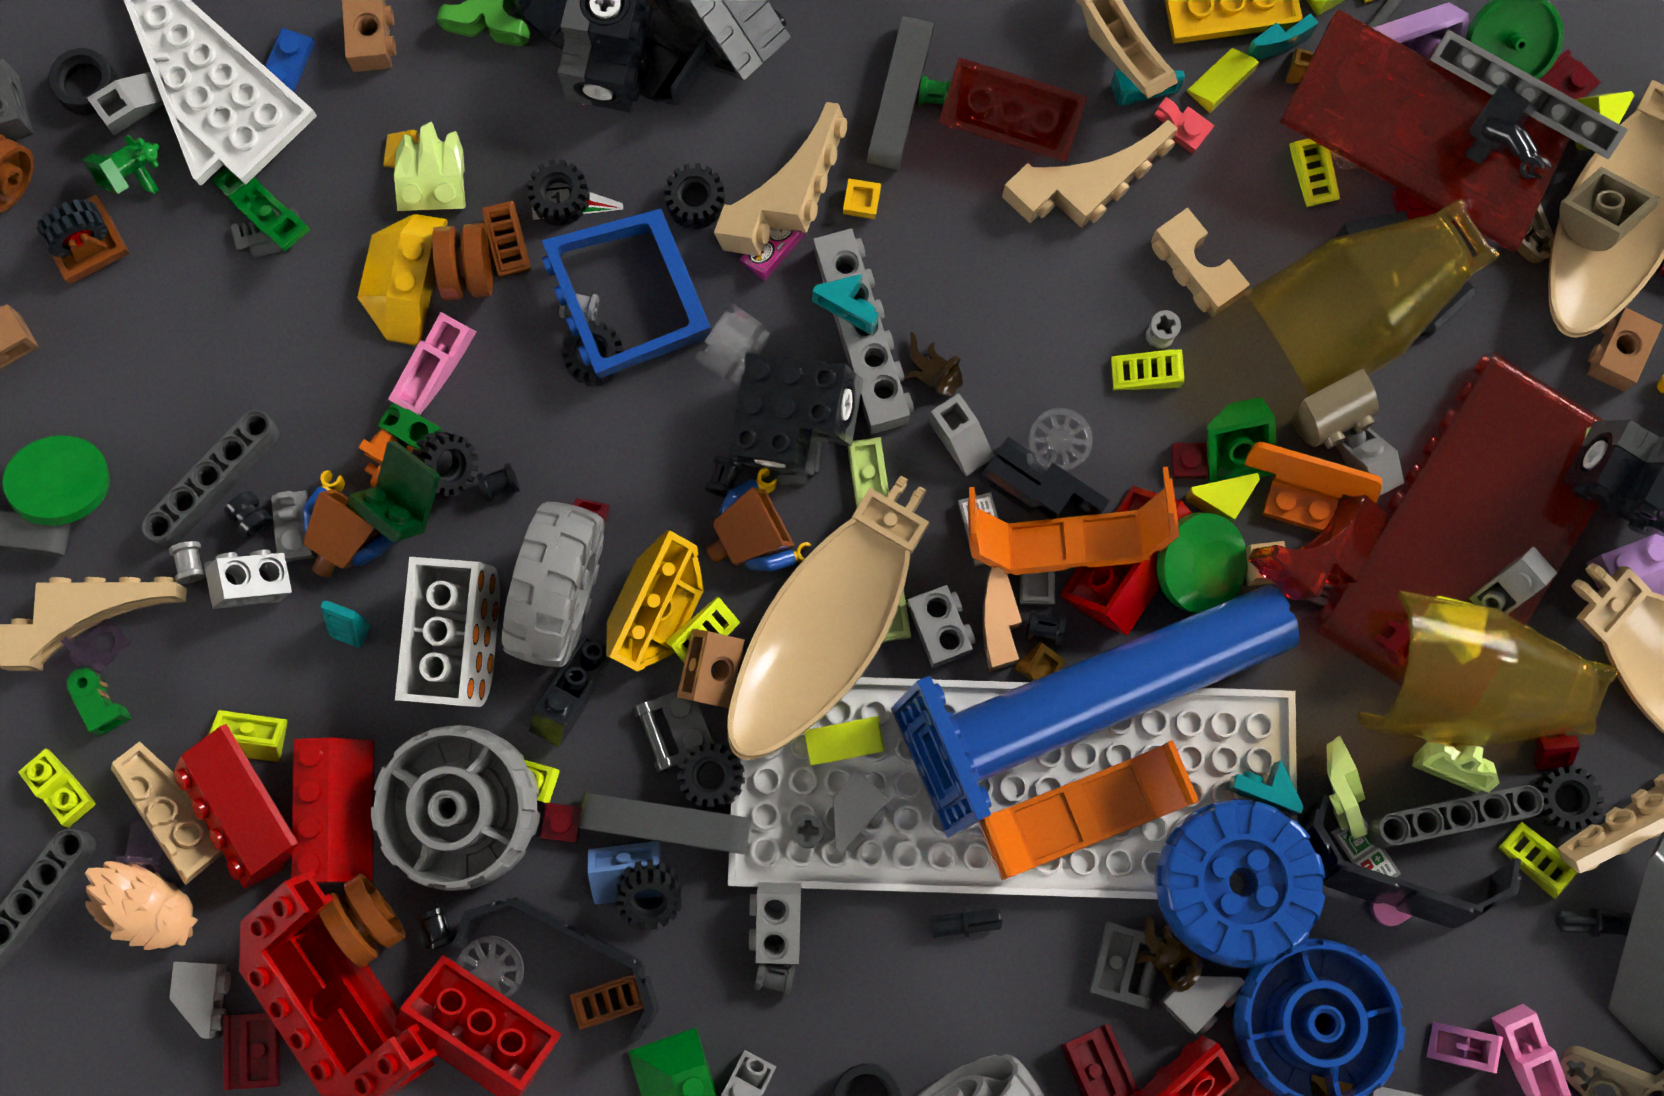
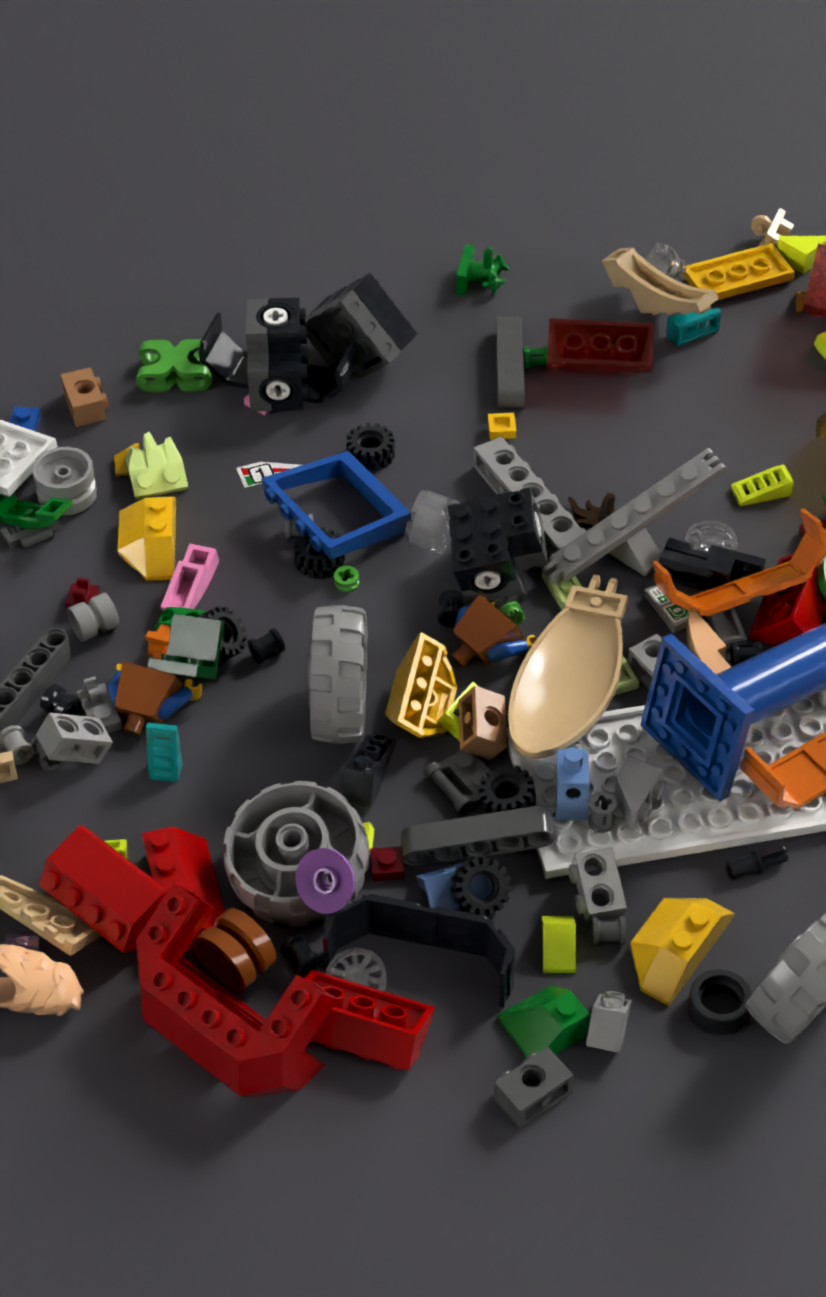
camera: 10 degrees left, 30 degrees down
(199, 995) = (97, 1044): light grey slope -> none
(250, 1052) = (156, 1080): dark red plate -> none
(305, 396) = (96, 615): none -> light grey wheel
(306, 354) = (81, 592): none -> dark red tile
(315, 174) = (65, 475): none -> light grey wheel
(448, 632) = (255, 727): white brick -> none
(462, 261) = (200, 507): dark orange wheel -> none
(464, 885) = (314, 885): none -> medium lavender dish
(501, 212) = (222, 483): dark orange slope -> none
(550, 175) = (260, 452): black tyre -> none
(579, 1010) = (464, 970): dark orange slope -> none
(619, 407) = (351, 583): none -> bright green bush
(718, 973) = (559, 944): none -> neon yellow slope
(773, 253) = (442, 466): slope -> none
(783, 789) = (572, 772): none -> medium blue torso
(788, 197) = (442, 432): tan arch -> none
(791, 503) = (513, 608): none -> bright green bush
(839, 299) = (511, 473): teal slope -> none
(844, 740) = (612, 745): neon yellow slope -> none
(846, 1007) = (675, 944): none -> yellow wedge
(968, 415) = (634, 516): none -> light grey hinge
(1085, 187) = (670, 389): tan arch -> none
(1166, 320) = (764, 456): light grey bush -> none
(1191, 125) = (732, 347): coral plate -> none
(1212, 286) = (791, 427): tan arch -> none
(1222, 79) = (749, 316): neon yellow slope -> none
(1277, 41) = (783, 286): teal slope -> none

